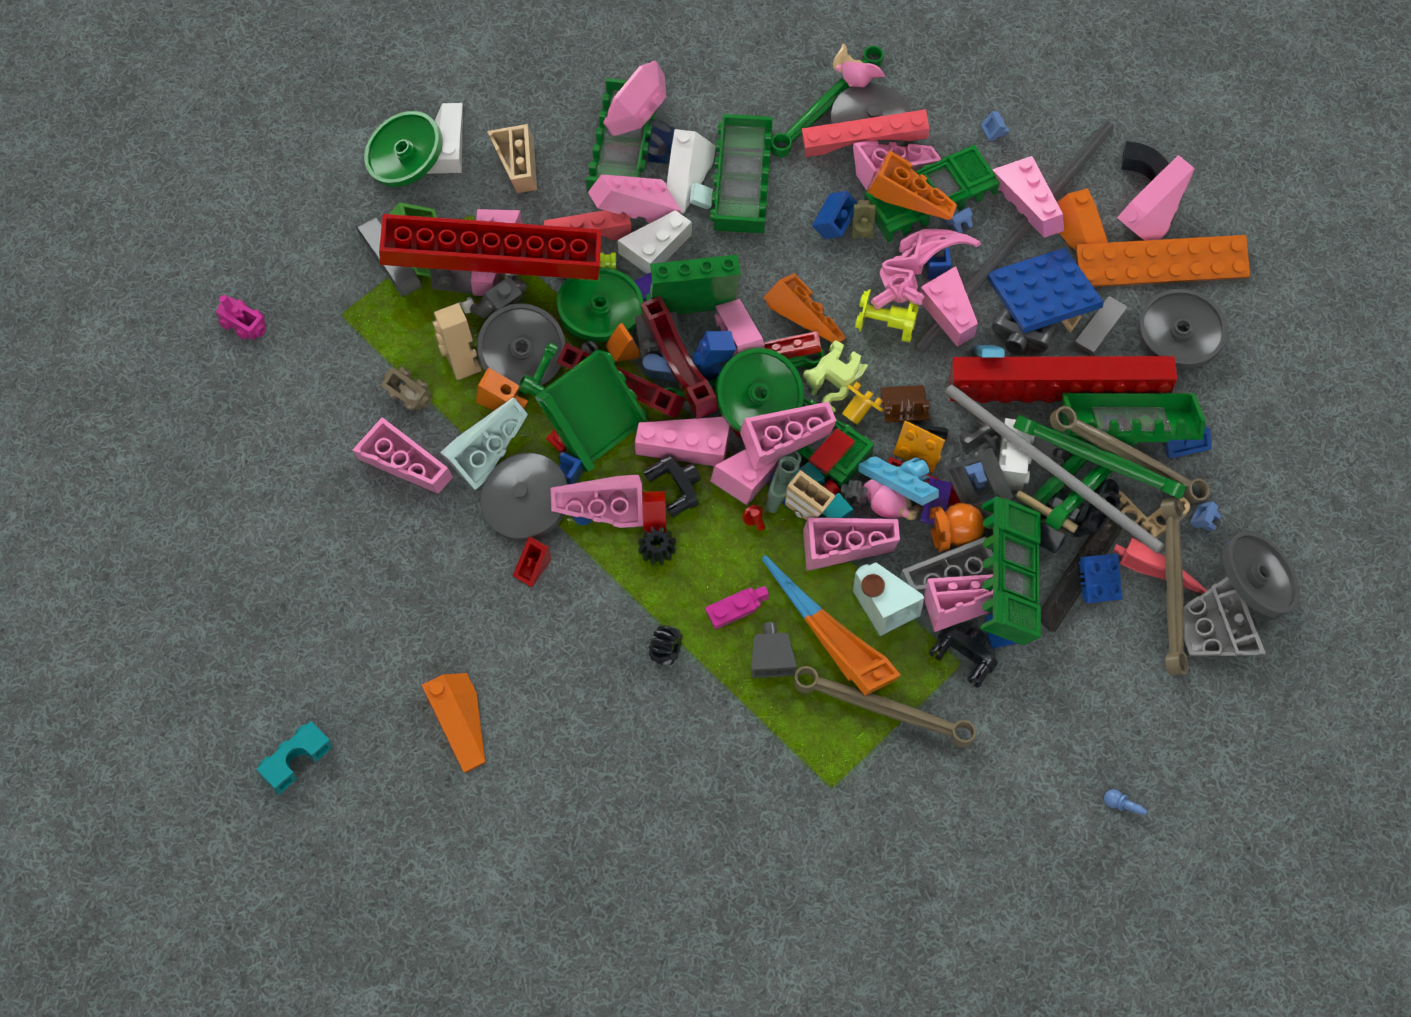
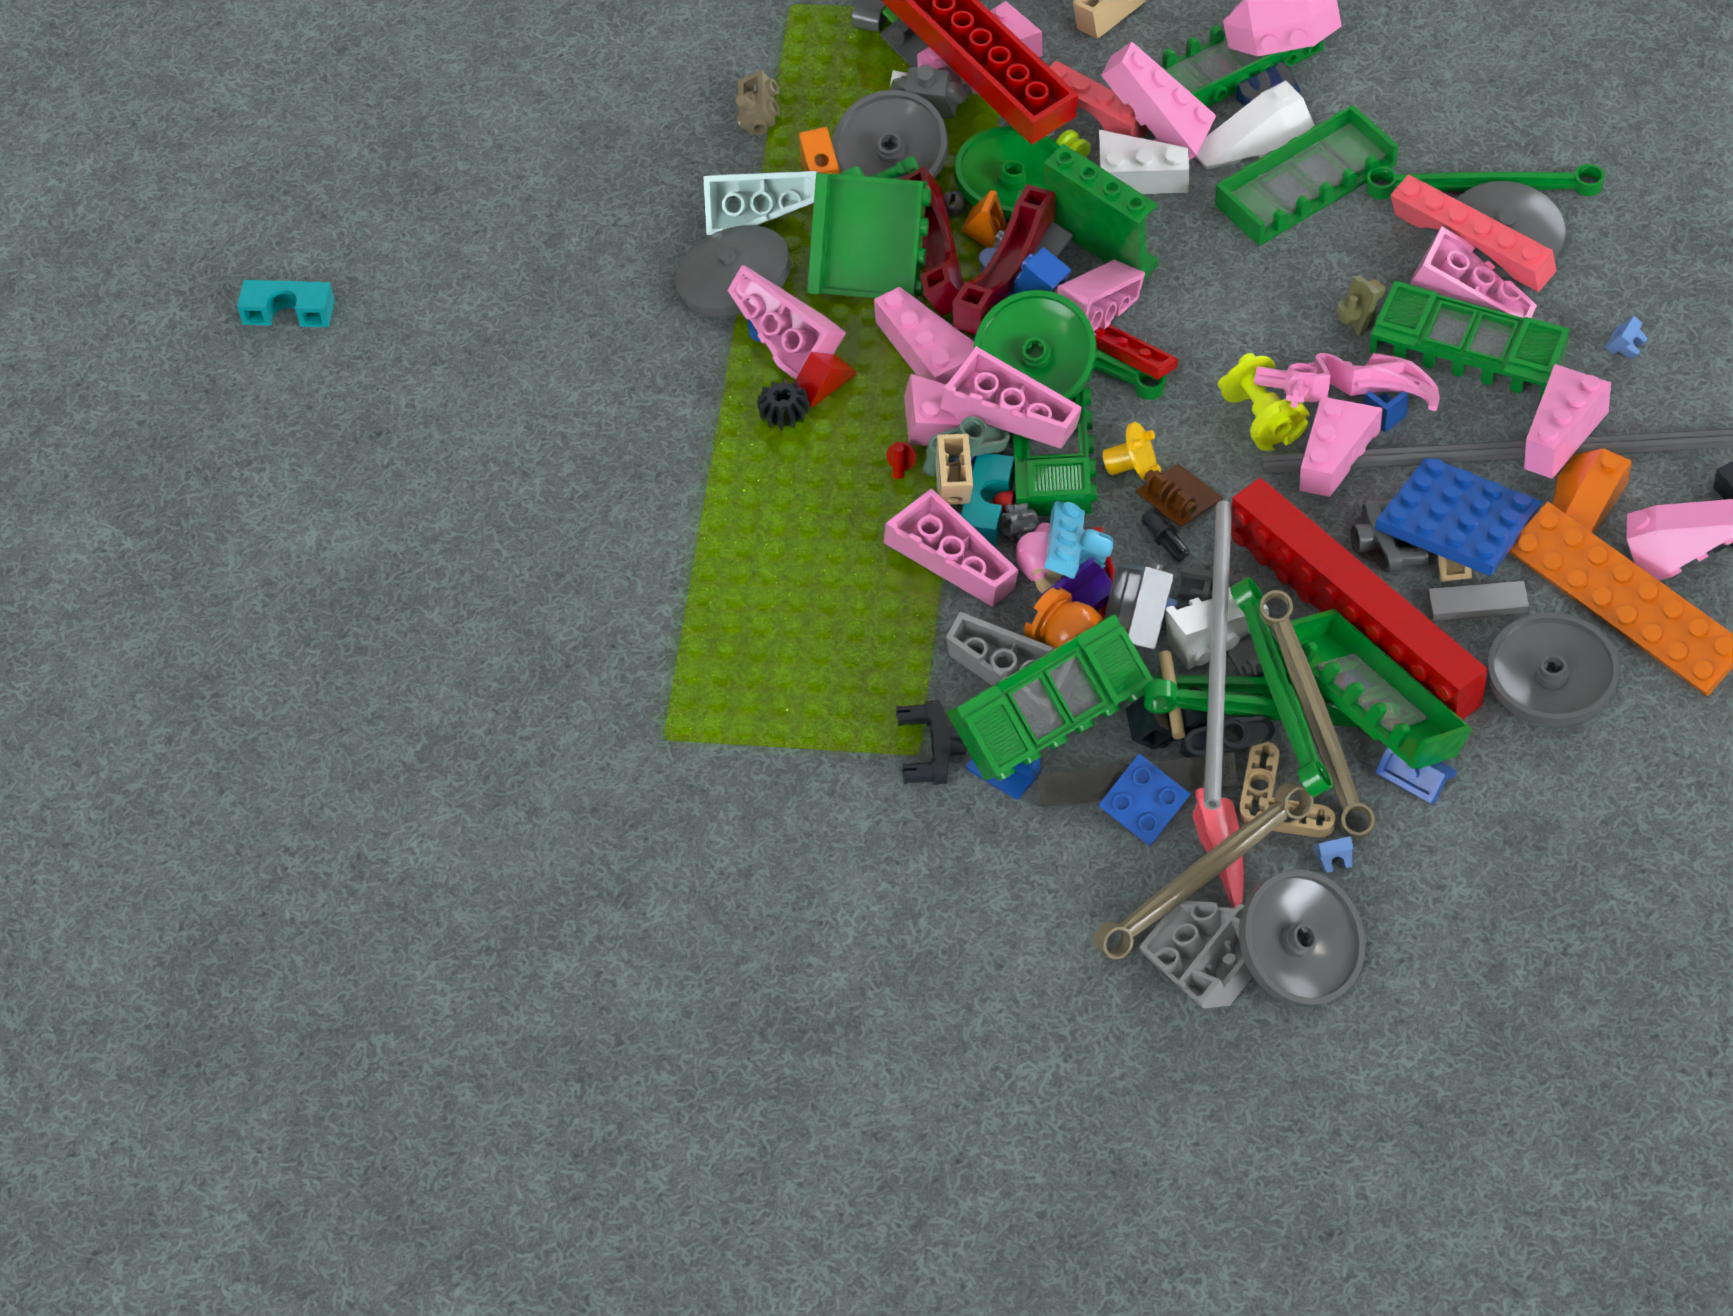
camera: 55 degrees right, 10 degrees down
(399, 455) = (678, 147): bright pink wedge -> none
(455, 341) = (836, 82): tan wedge -> none
(458, 714) = (450, 382): orange wedge -> none
(532, 562) = (668, 327): red slope -> none
(571, 467) = (796, 281): blue panel -> none
(665, 645) = (679, 487): black gear -> none
(683, 477) = (881, 372): black connector -> none
(701, 195) = (1237, 159): light aqua tile -> none
(736, 606) = (784, 516): dark pink hinge -> none
(772, 654) = (755, 577): dark grey torso -> none
(792, 300) = (1197, 325): orange wedge -> none
(831, 451) = (1039, 462): red tile -> none
(835, 215) = (1335, 279): blue brick -> none
(836, 372) = (1150, 405): yellowish green animal -> none
(852, 655) = (822, 646): orange plate -> none
(855, 71) = (1537, 166): bright pink hair -> none
(873, 585) = (900, 586): copper piece -> none
(885, 706) = (793, 714): dark tan piece -> none
(894, 606) = (906, 622): light aqua slope -> none
(903, 187) = (1433, 299): orange wedge -> none
(920, 444) = (1132, 532): light orange hinge -> none
(955, 599) = (960, 672): bright pink wedge -> none
(959, 217) = (1467, 384): medium blue tile -> none
(989, 351) = (1312, 510): medium azure tile -> none
(1115, 799) = (894, 1000): medium blue bar -> none

